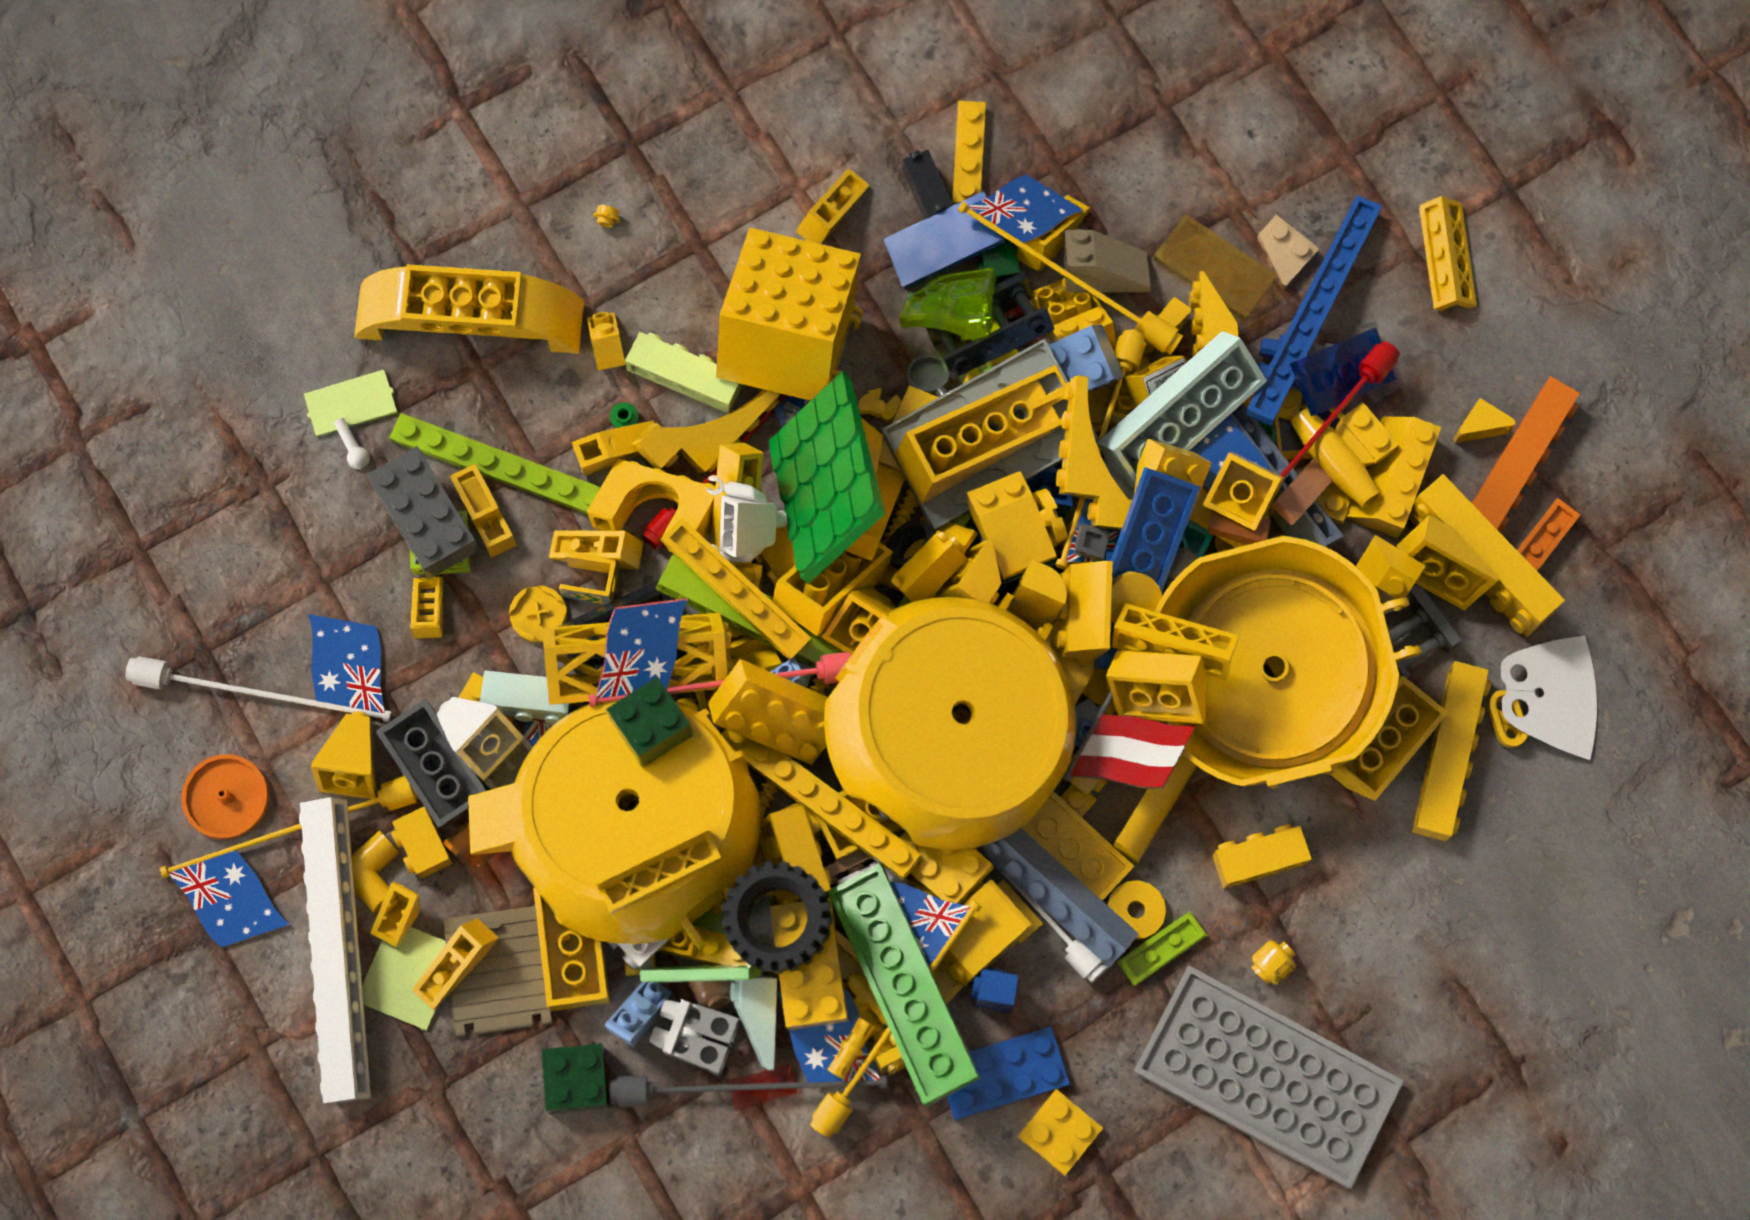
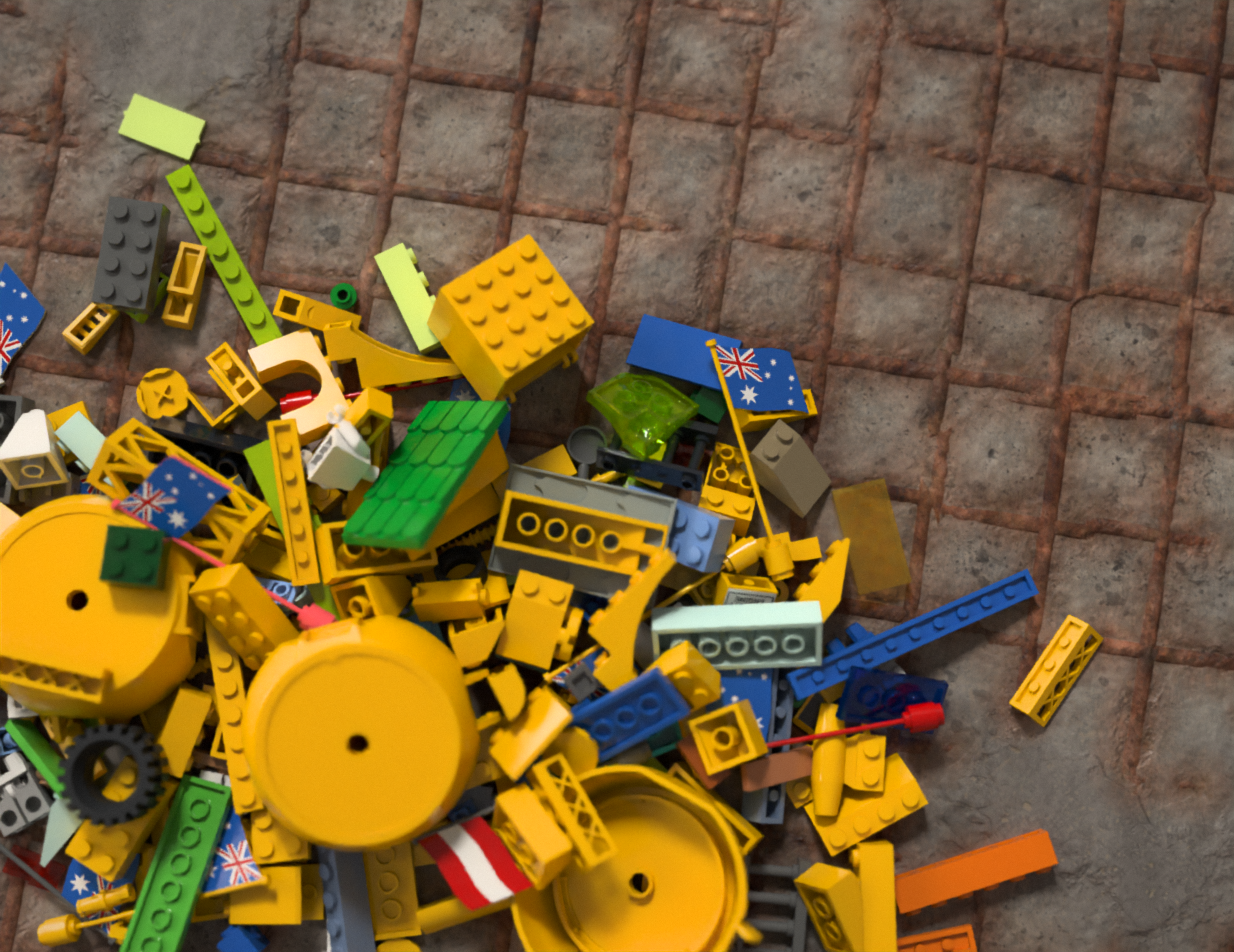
camera: 45 degrees right, 10 degrees up
(357, 456) = (134, 172): white bar -> none
(469, 304) = (297, 129): yellow slope -> none
(605, 340) = (376, 228): yellow slope -> none
(607, 216) = (457, 132): yellow plate -> none
(832, 207) = (626, 259): yellow slope -> none
(873, 405) = (527, 433): yellow piece -> none
(925, 183) = (710, 298): black brick -> none
(968, 150) = (764, 297): yellow plate -> none
(1286, 250) = (937, 566): tan wing -> none
(1389, 569) = (786, 883): yellow slope -> none
(1484, 422) = (966, 819): yellow slope -> none

